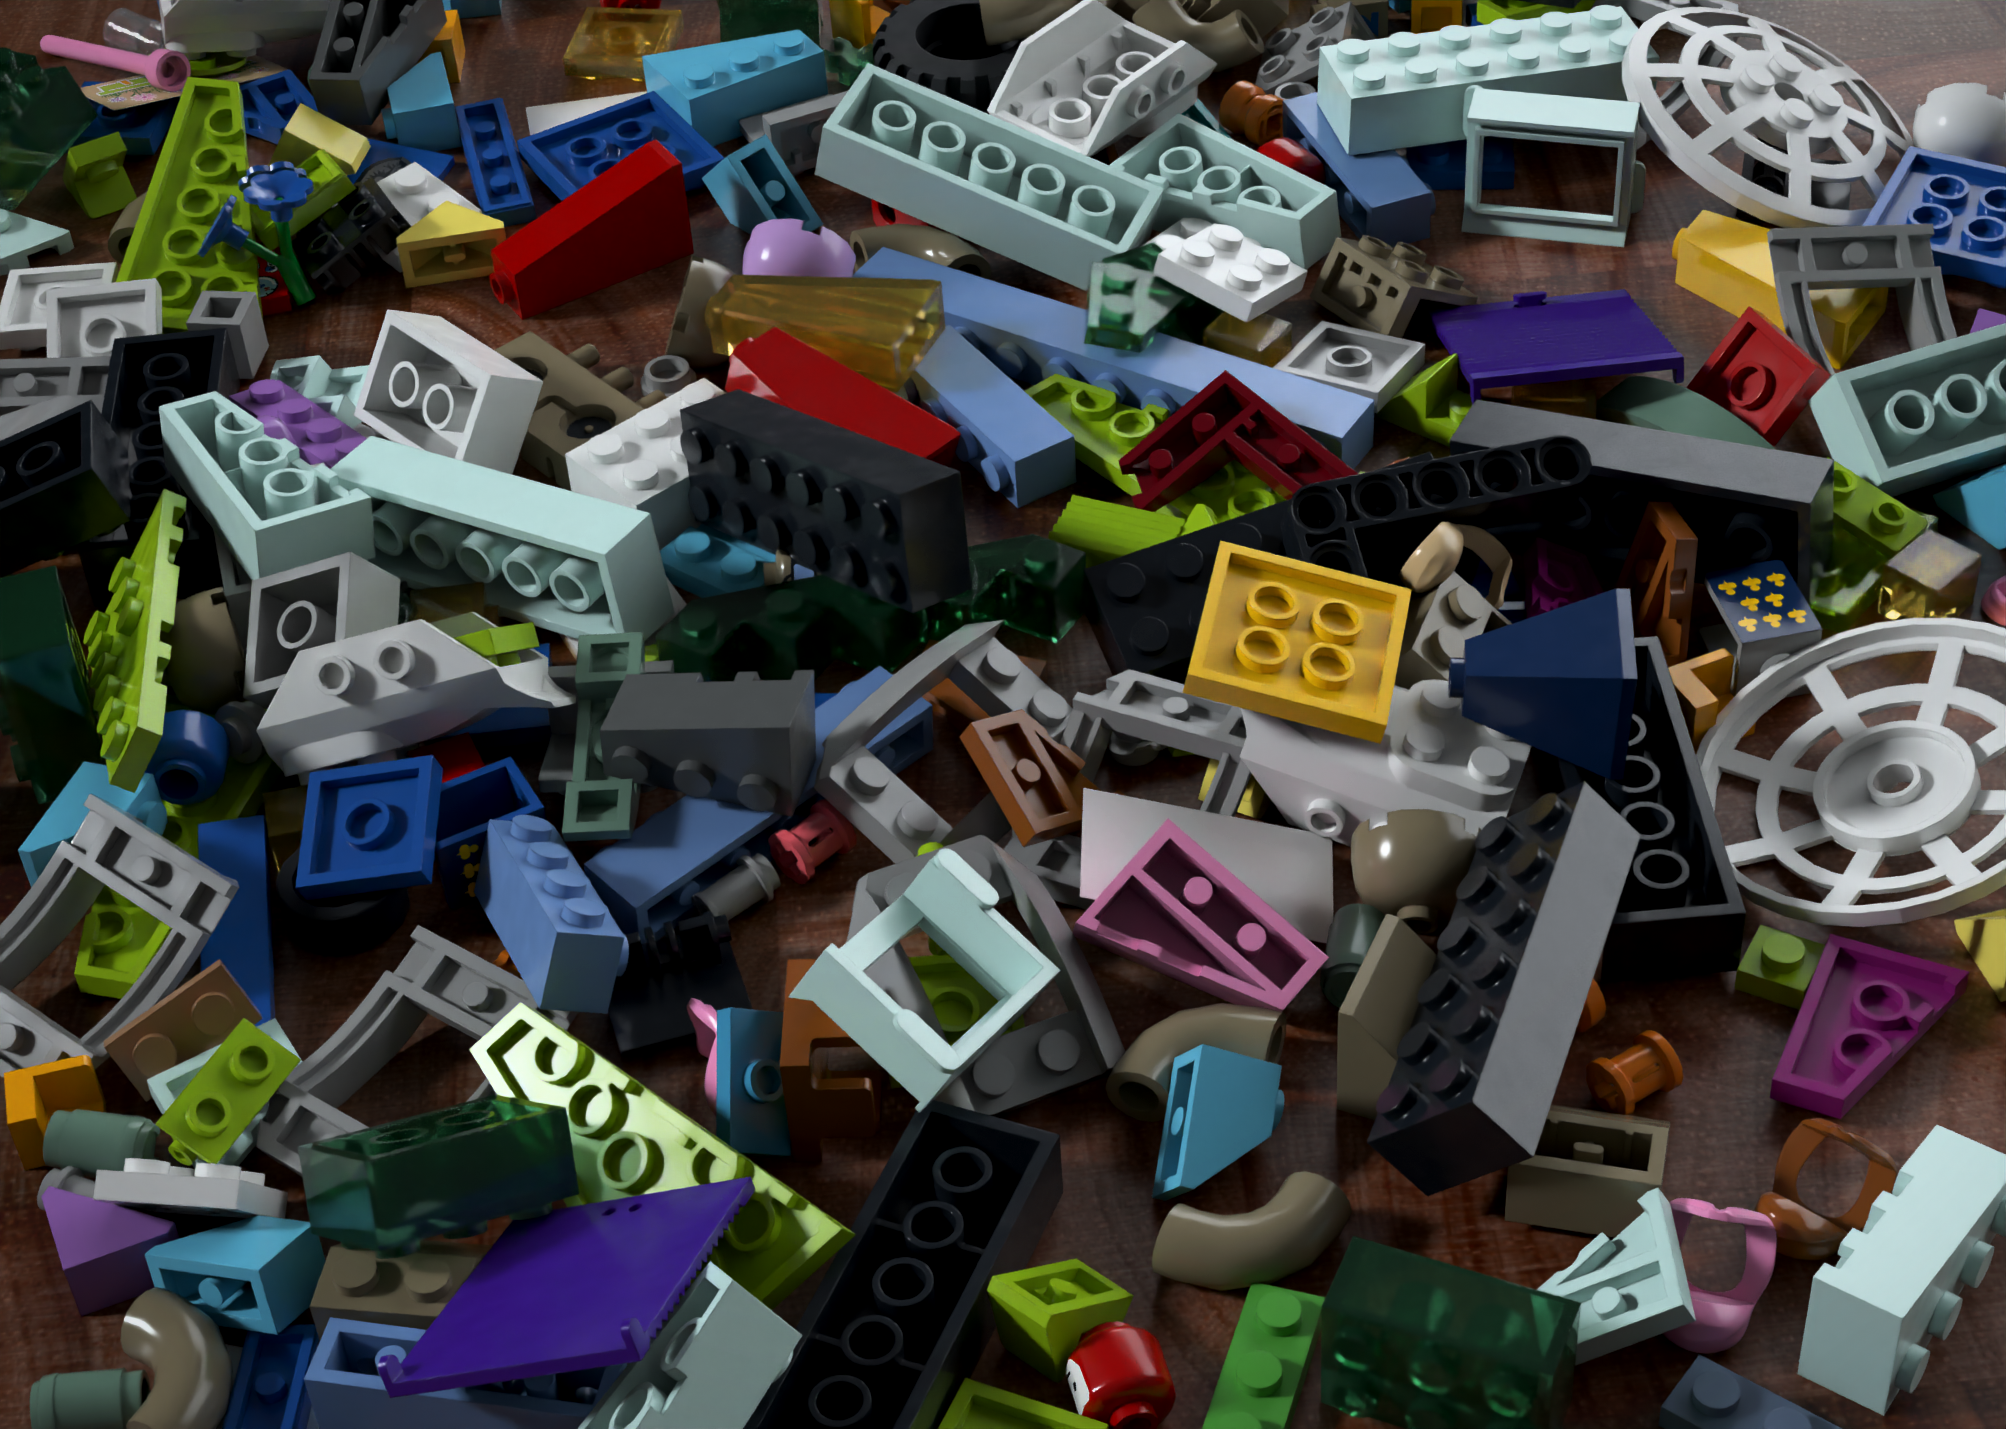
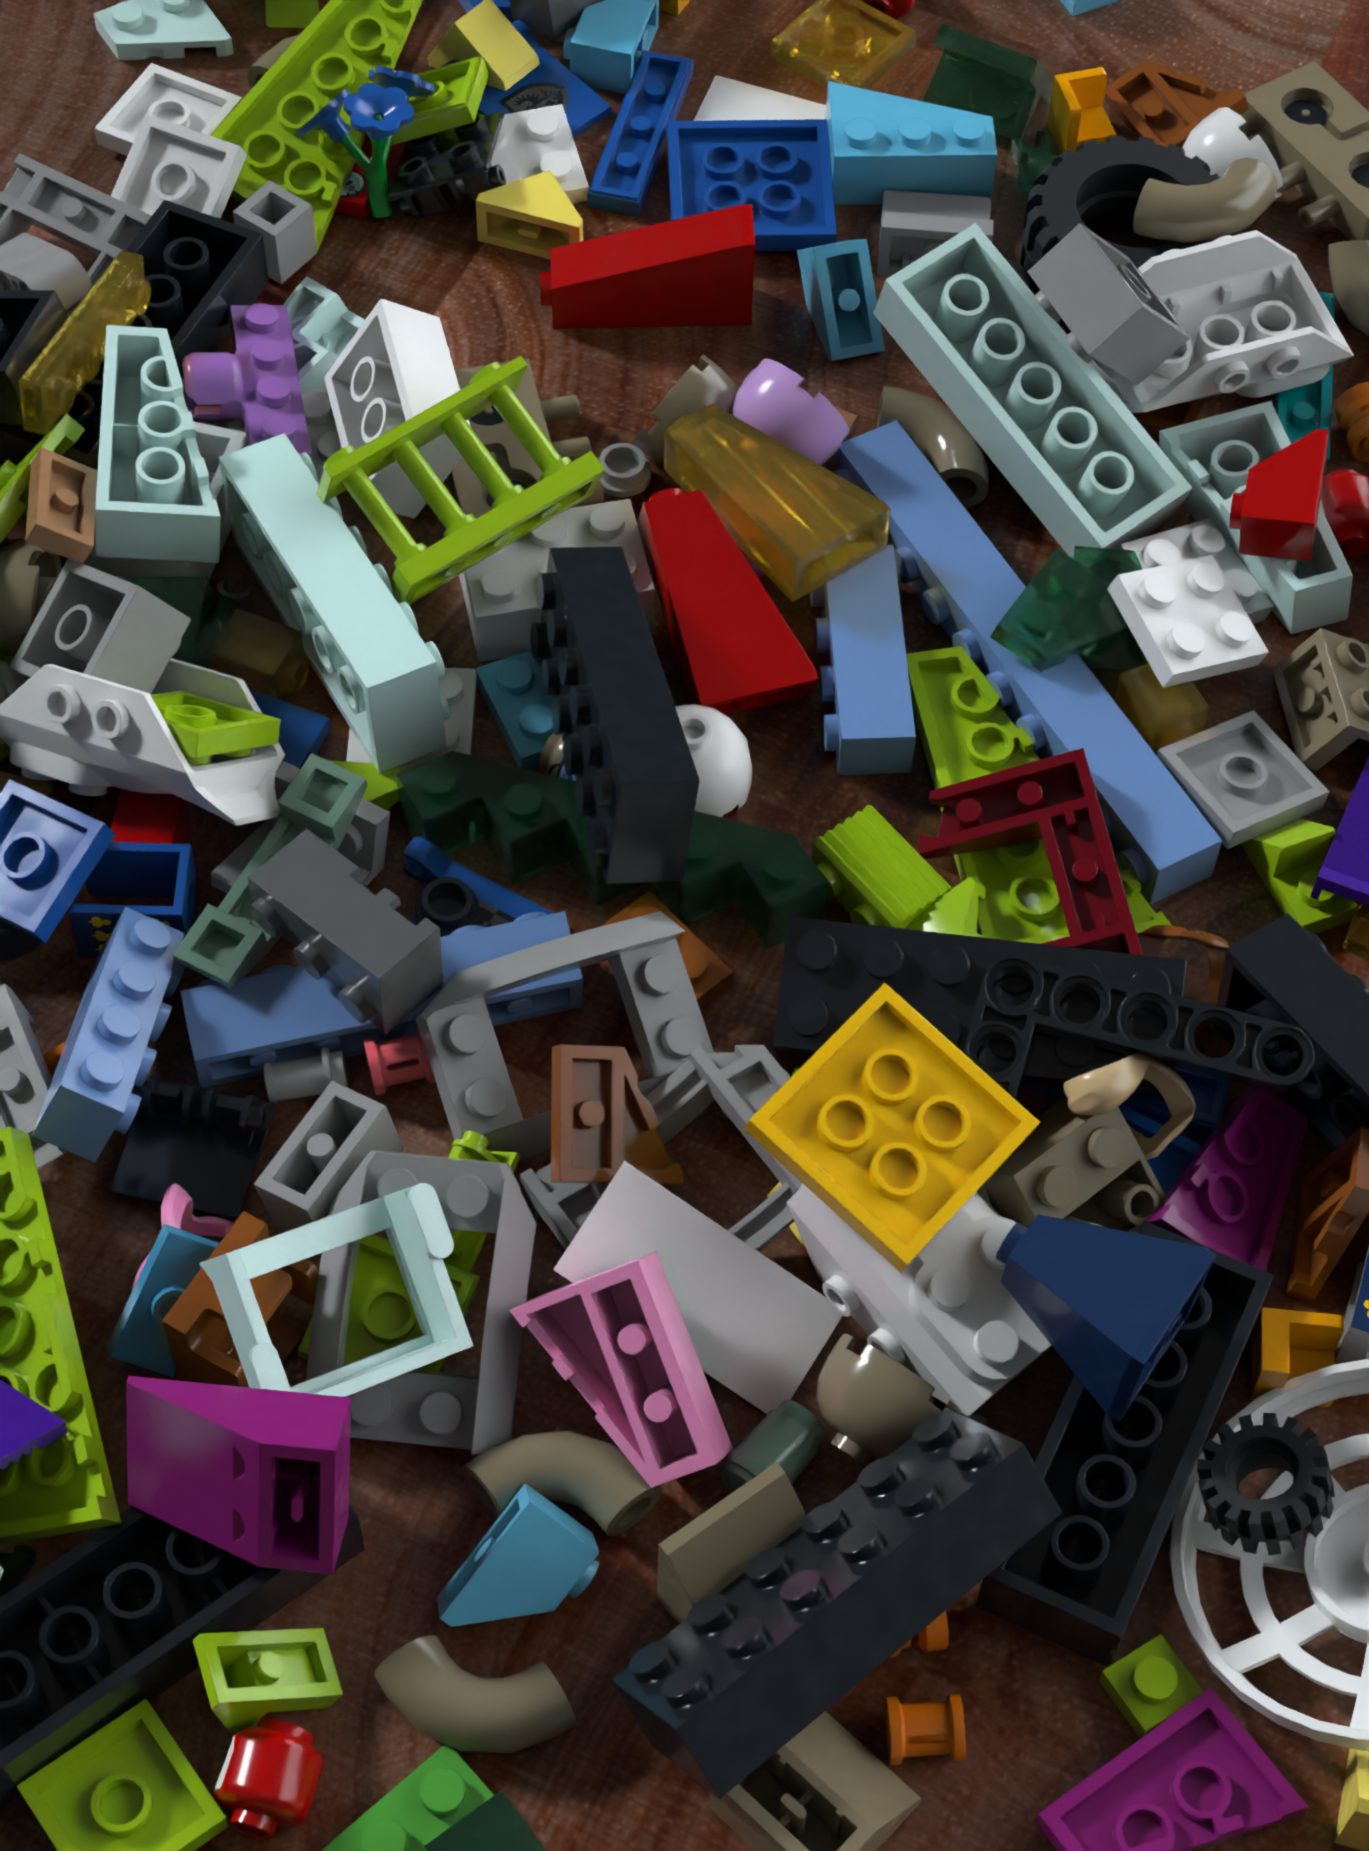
camera: 25 degrees right, 15 degrees up
(137, 440) = (79, 345): none -> clear yellow plate
(216, 548) = (61, 506): none -> medium nougat plate
(596, 440) = (466, 538): none -> lime fence
(810, 907) = (324, 1155): none -> light grey brick
(945, 1116) = (243, 1468): none -> magenta slope
(1013, 80) = (1106, 306): none -> light grey brick
(1249, 160) = (1282, 501): none -> red slope
(1772, 798) = (1275, 1517): none -> black tyre

